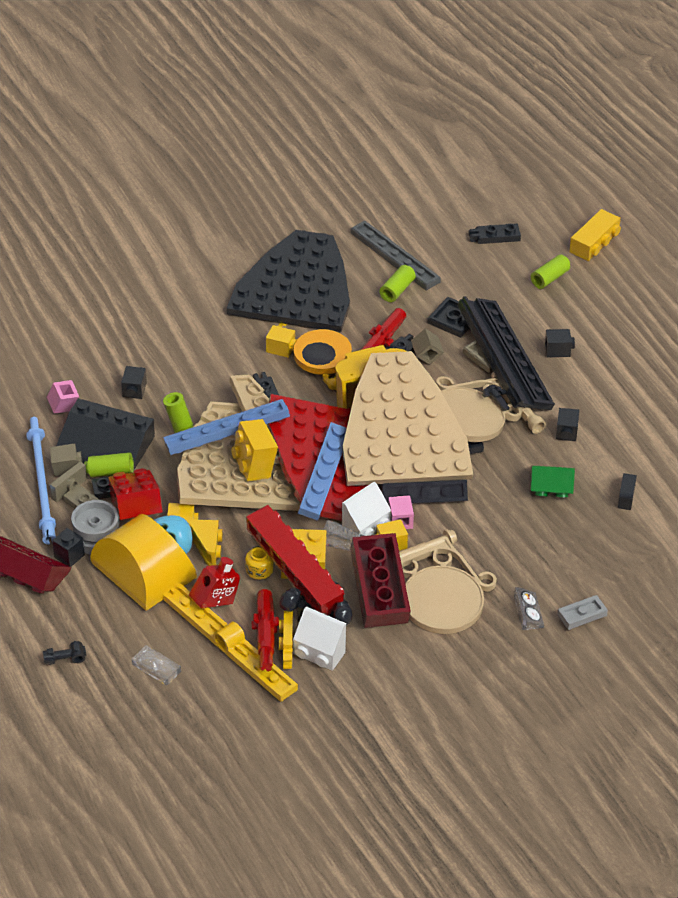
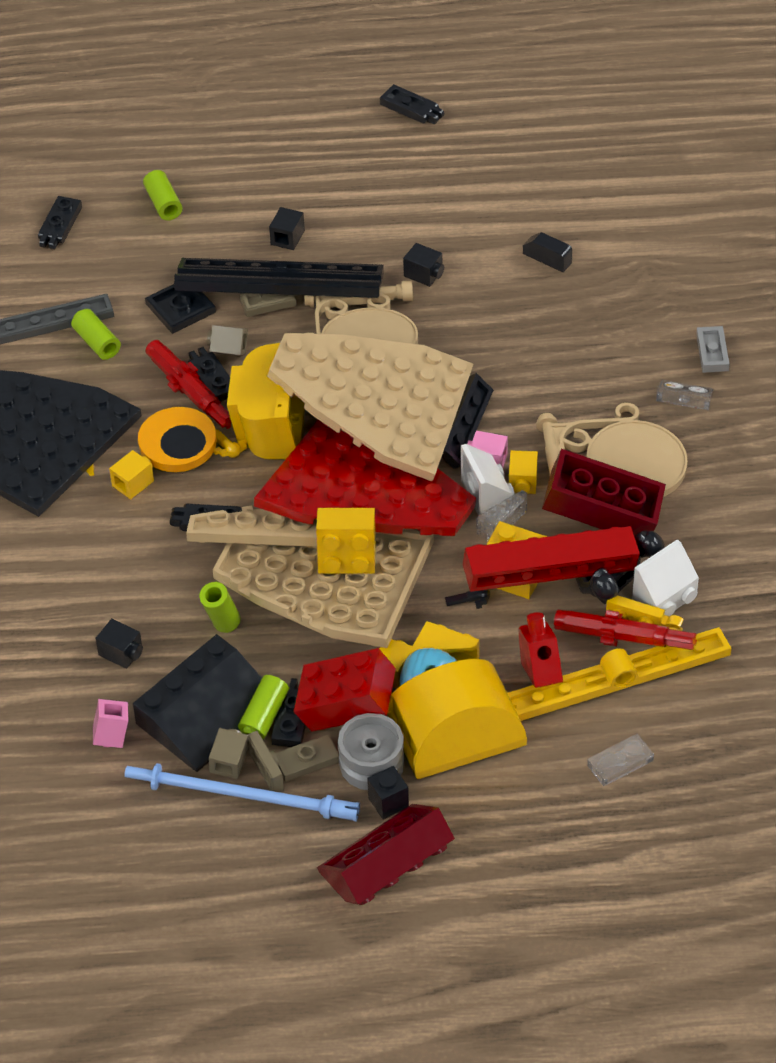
camera: 65 degrees left, 5 degrees up
(76, 652) = (567, 834): black bar -> none
(224, 427) = (295, 556): medium blue plate -> none
(258, 564) = (512, 605): yellow head -> none
(323, 472) = (407, 490): medium blue plate -> none
(495, 391) = (348, 304): black piece -> none
(552, 479) = (502, 305): green slope -> none
(595, 235) = (125, 137): yellow brick -> none

